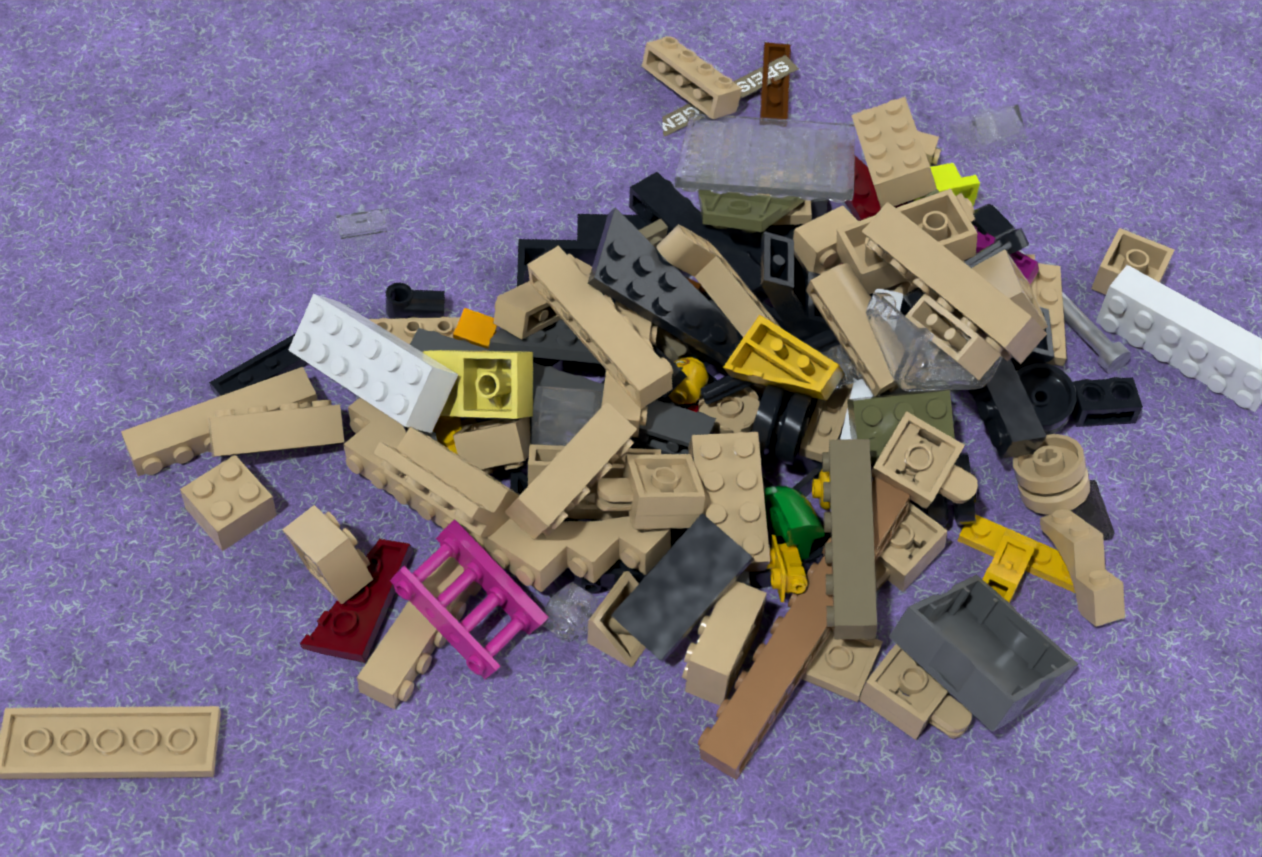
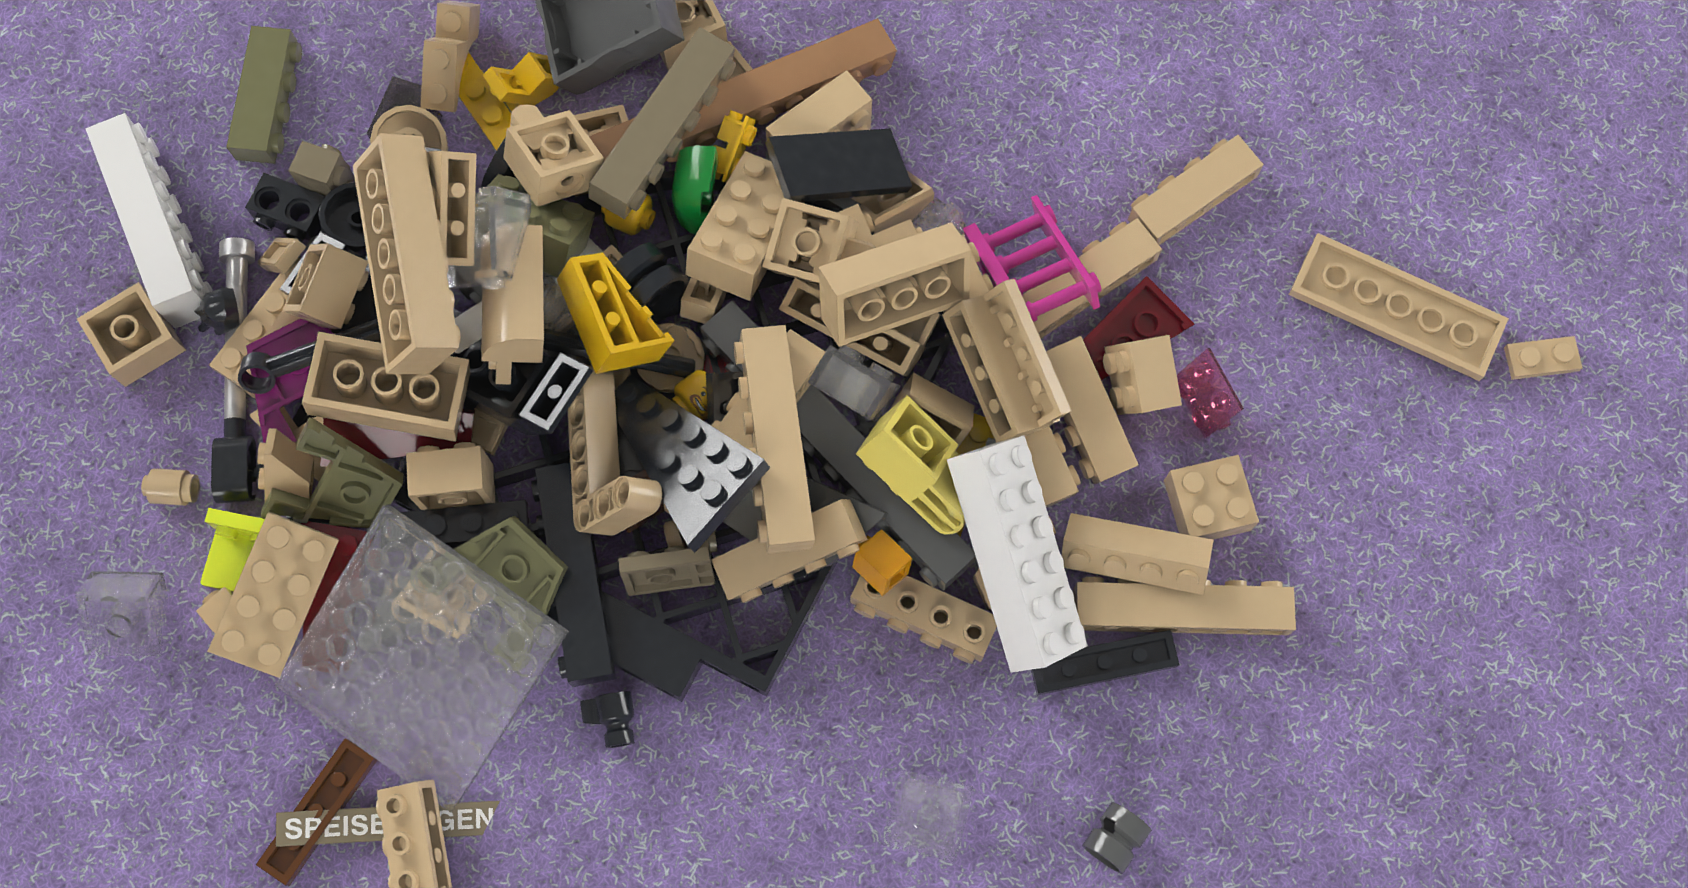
camera: 150 degrees left, 20 degrees up
(214, 261) = (1117, 837): none -> dark grey wheel
(263, 582) = (1208, 394): none -> clear pink hinge
(347, 758) = (1197, 189): none -> tan brick
(372, 521) = (1093, 422): none -> tan brick
(405, 302) = (911, 669): black piece -> none
(613, 195) = (614, 712): none -> black piece
(1021, 202) = (170, 487): none -> tan brick
(1076, 357) = (281, 255): none -> tan tile
(1086, 299) = (219, 311): none -> black piece
(1097, 422) = (320, 168): none -> dark tan brick
(1200, 474) = (264, 95): none -> olive brick

